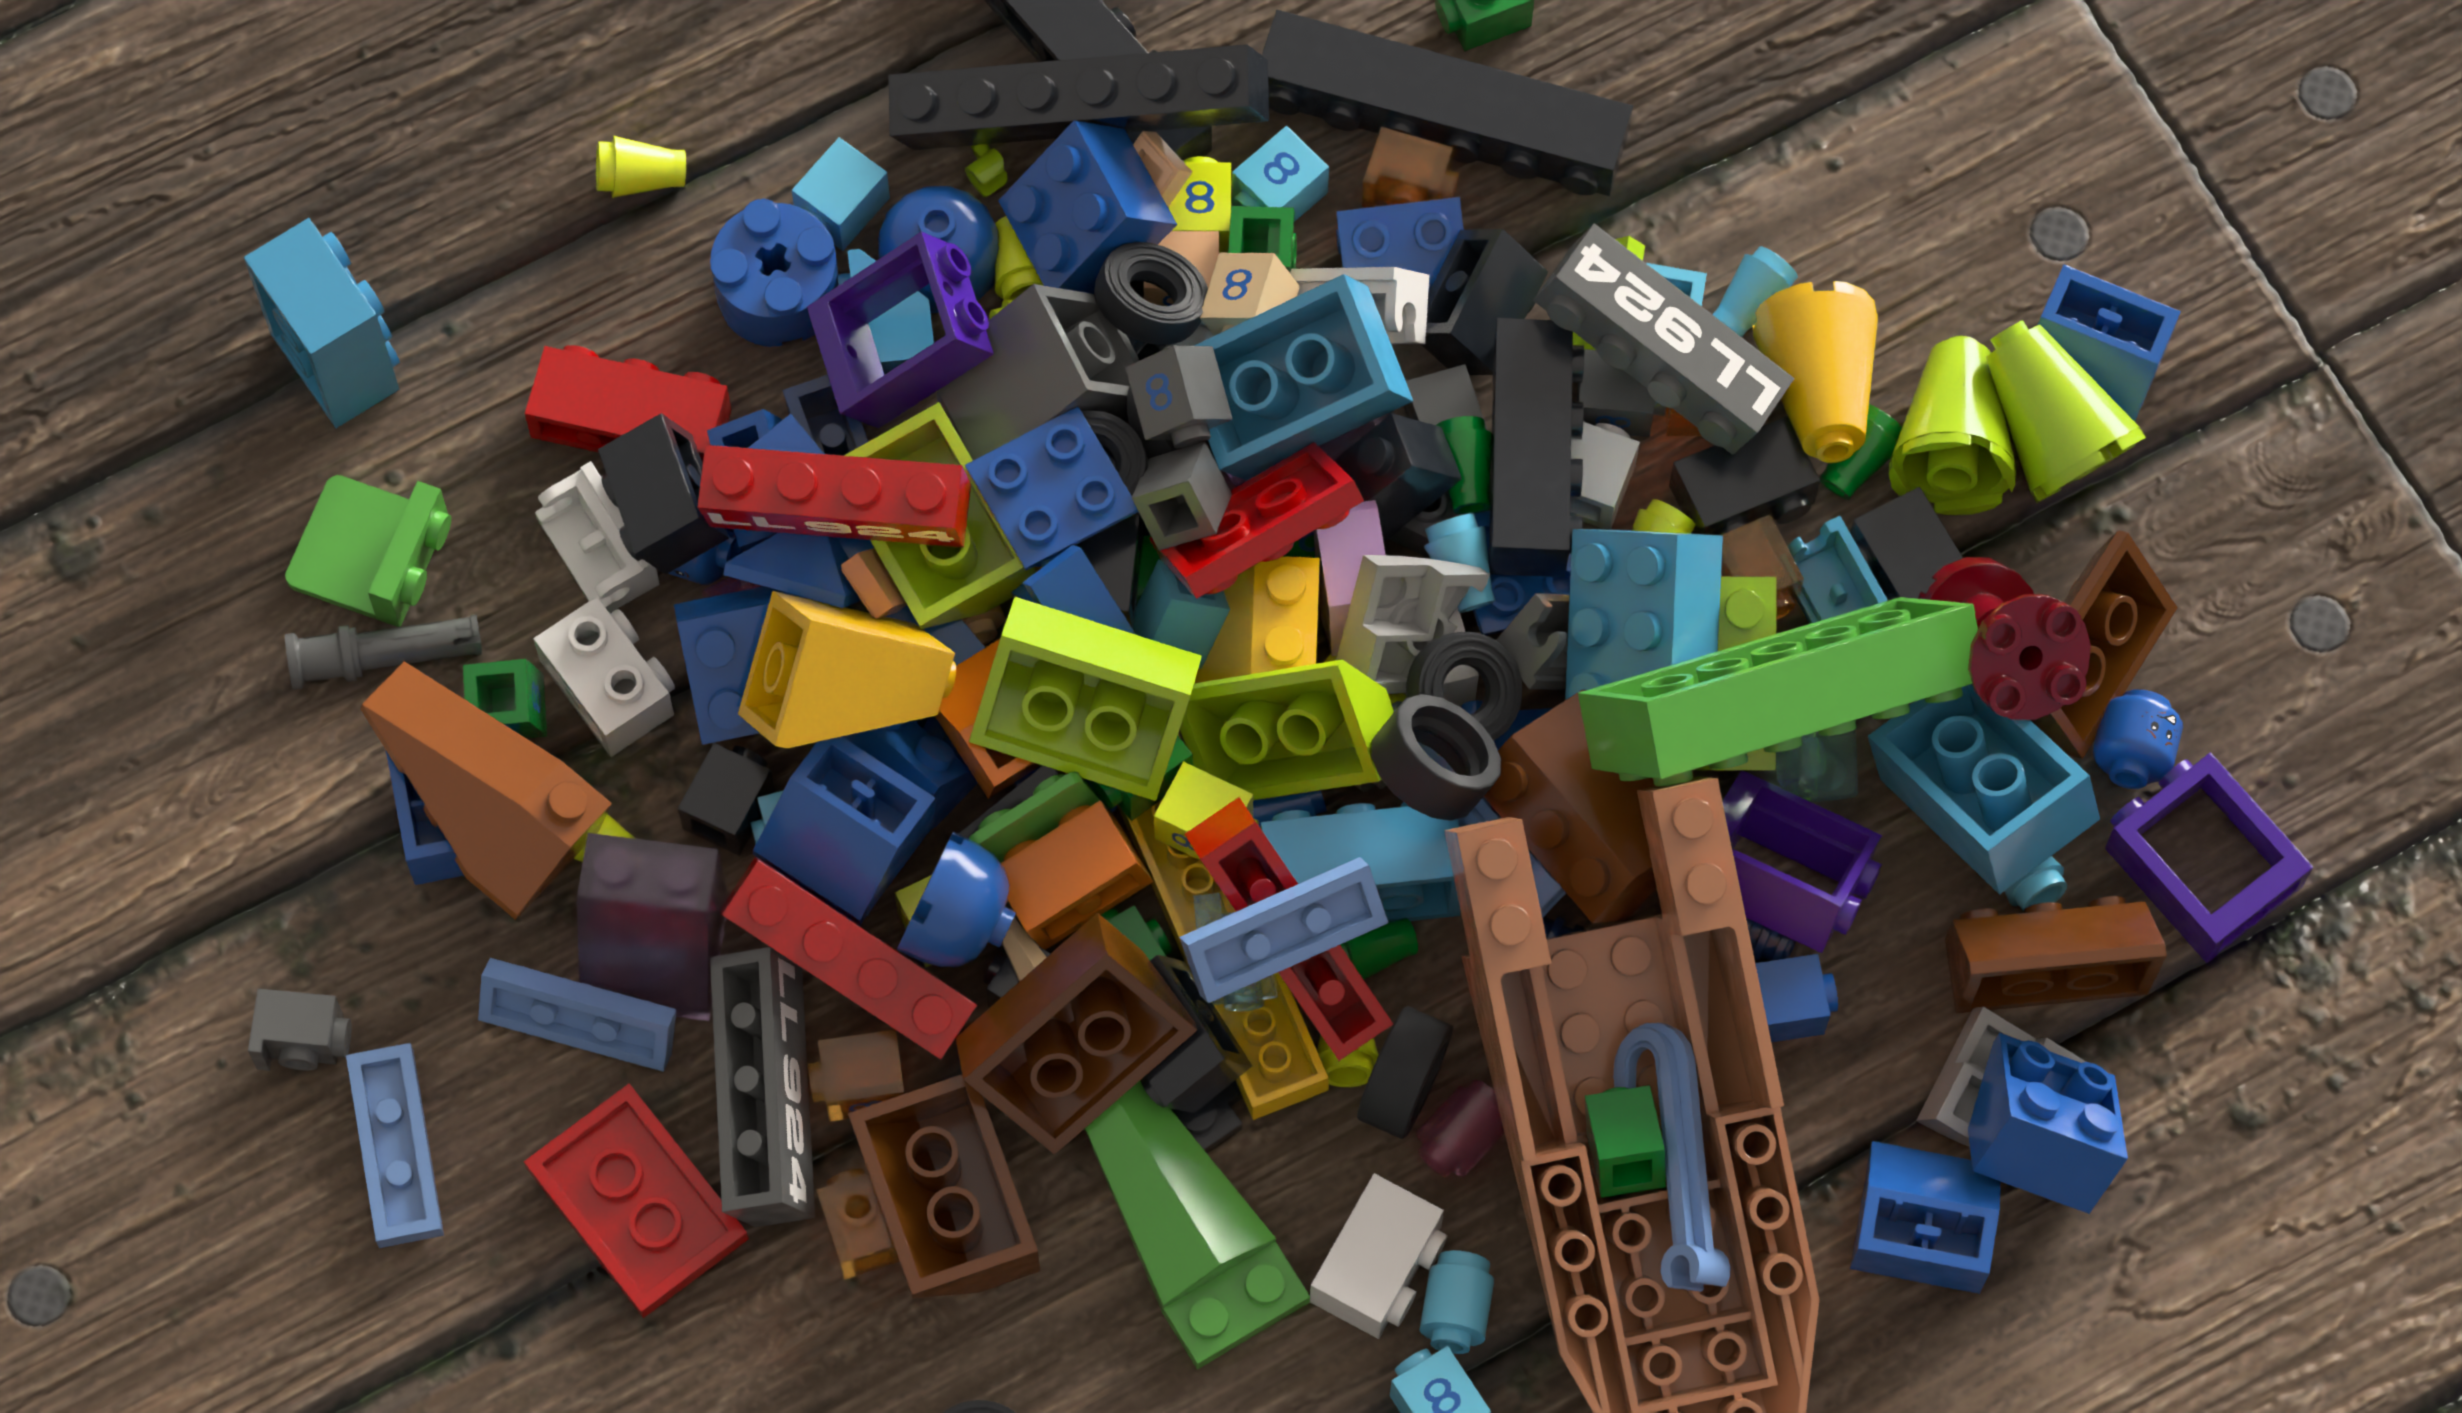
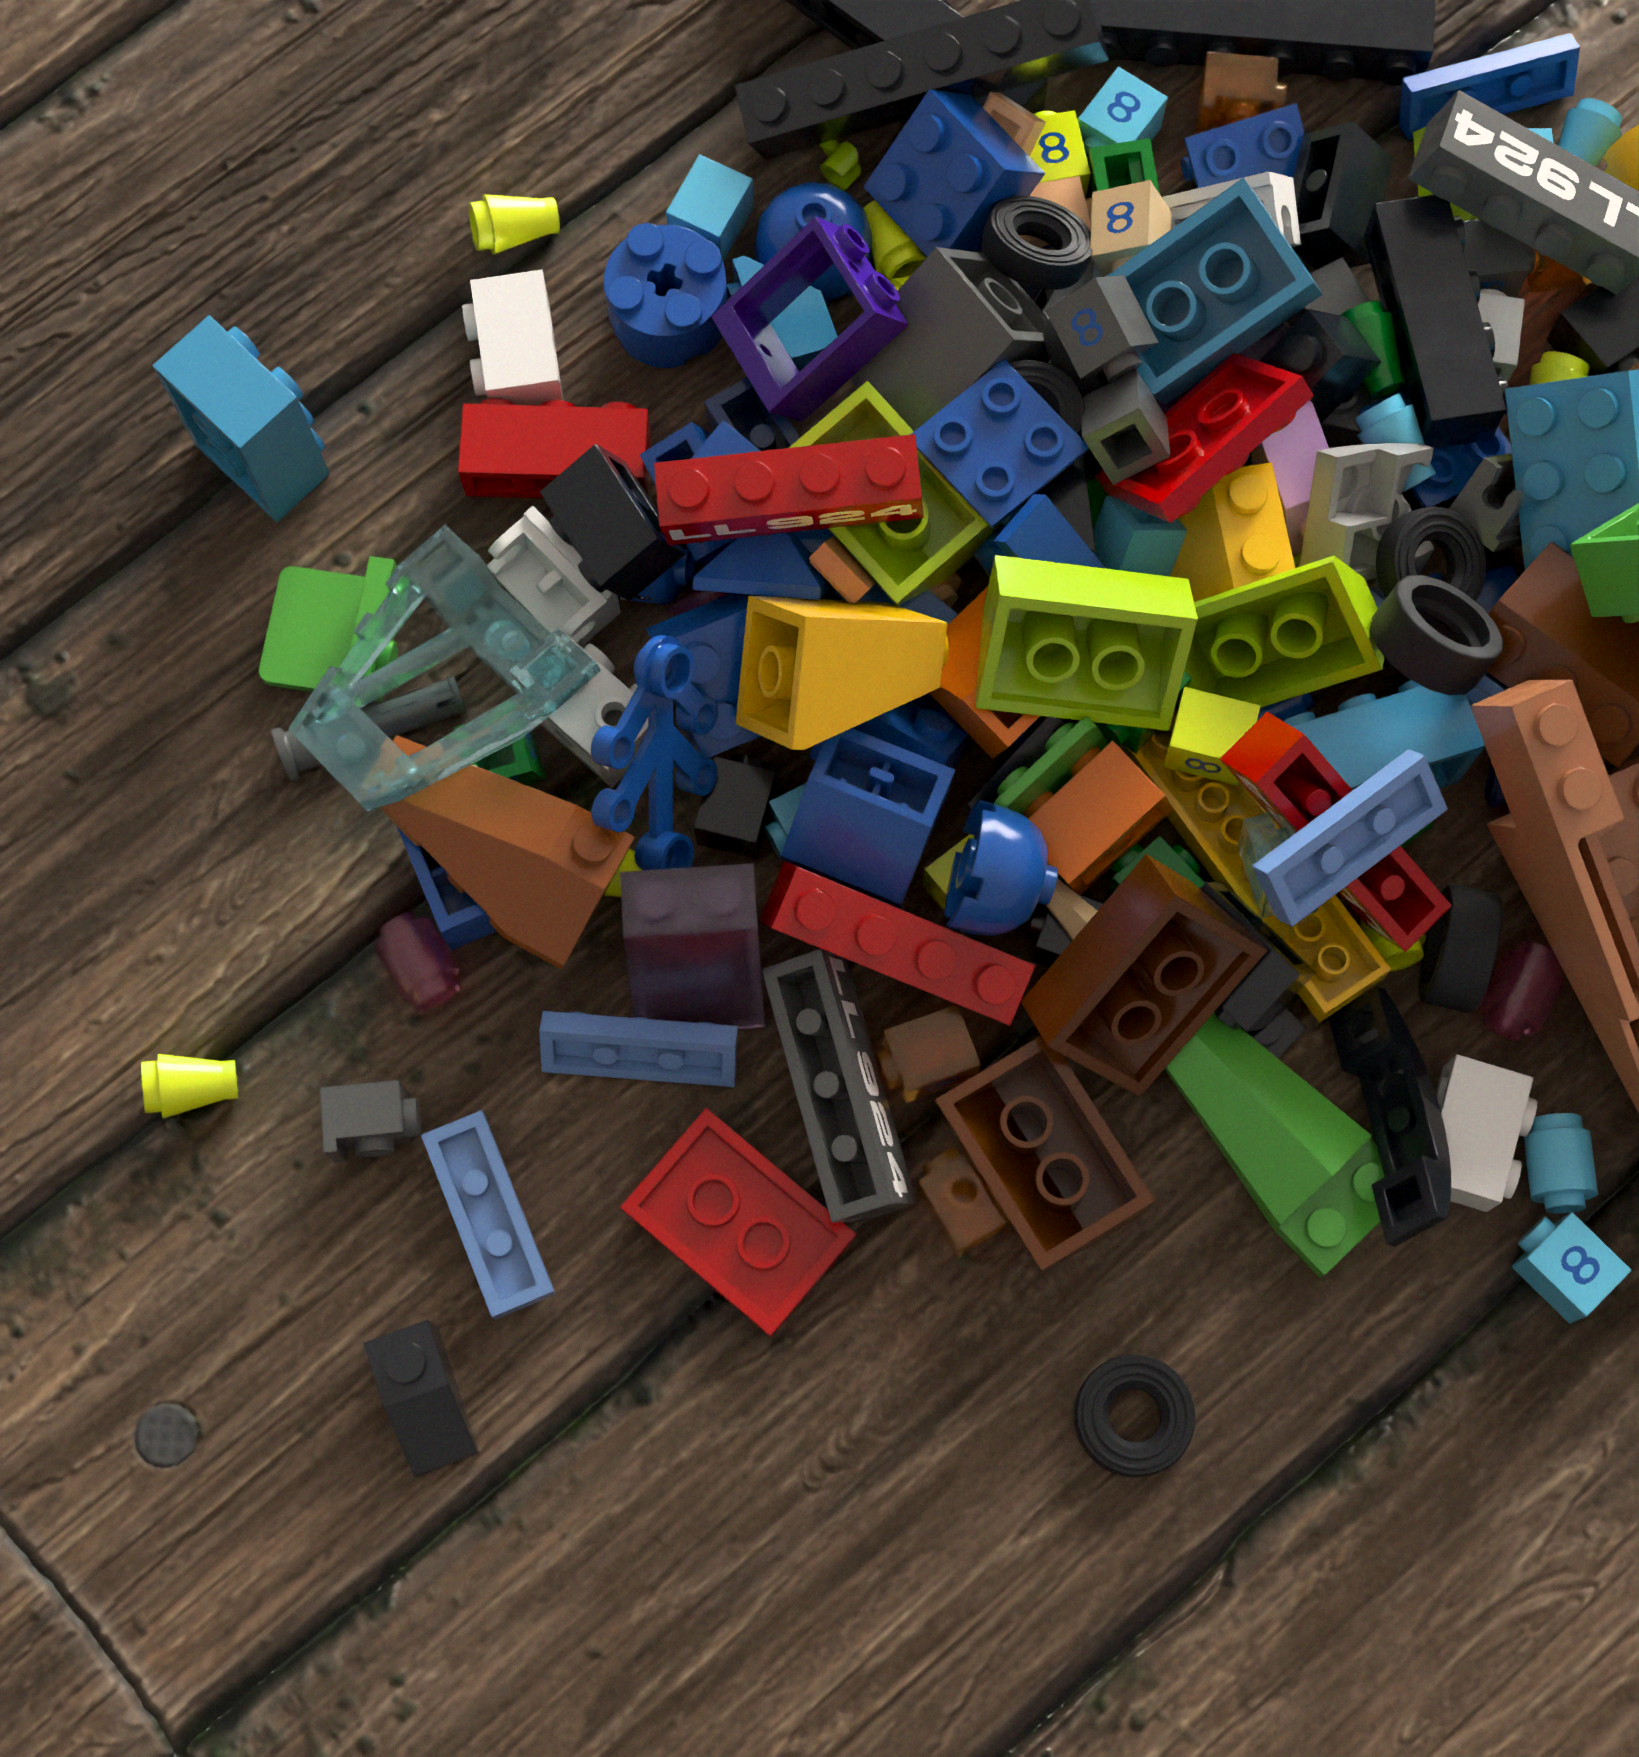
camera: 10 degrees left, 5 degrees up
(129, 962) = (186, 1083): none -> neon yellow cone
(292, 1303) = (421, 1397): none -> black slope
(380, 888) = (418, 961): none -> clear pink brick
(513, 562) = (481, 615): none -> clear light blue windscreen
(613, 290) = (514, 338): none -> white brick
(665, 652) = (662, 678): none -> blue plant
(1308, 1163) = (1402, 1113): none -> black slope
(1676, 212) = (1499, 80): none -> blue plate

